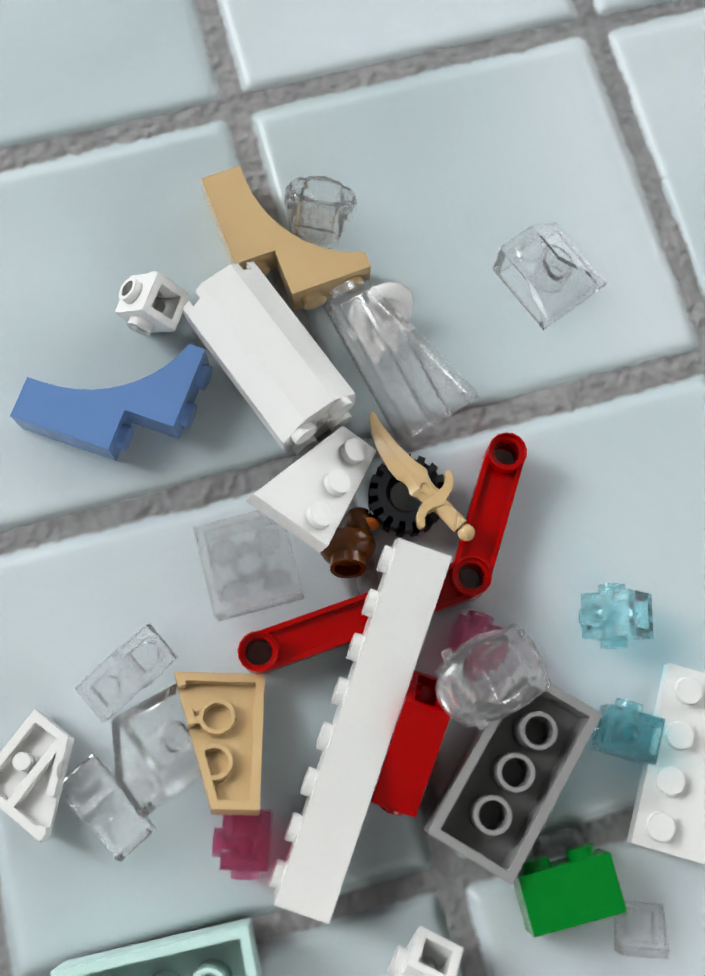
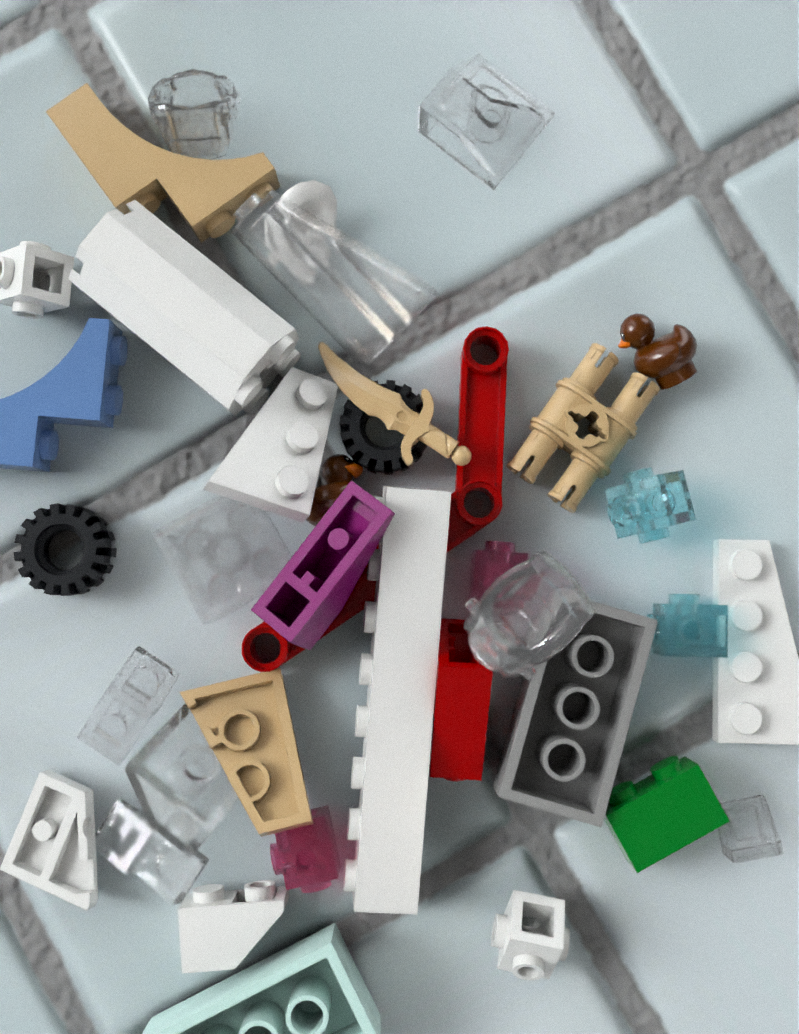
camera: 10 degrees left, 10 degrees up
(93, 509) = (36, 544): none -> black tyre
(154, 891) = (224, 926): none -> white slope
(330, 593) = (325, 568): none -> magenta slope
(592, 549) = (557, 427): none -> tan pin
(655, 499) = (665, 358): none -> reddish brown animal

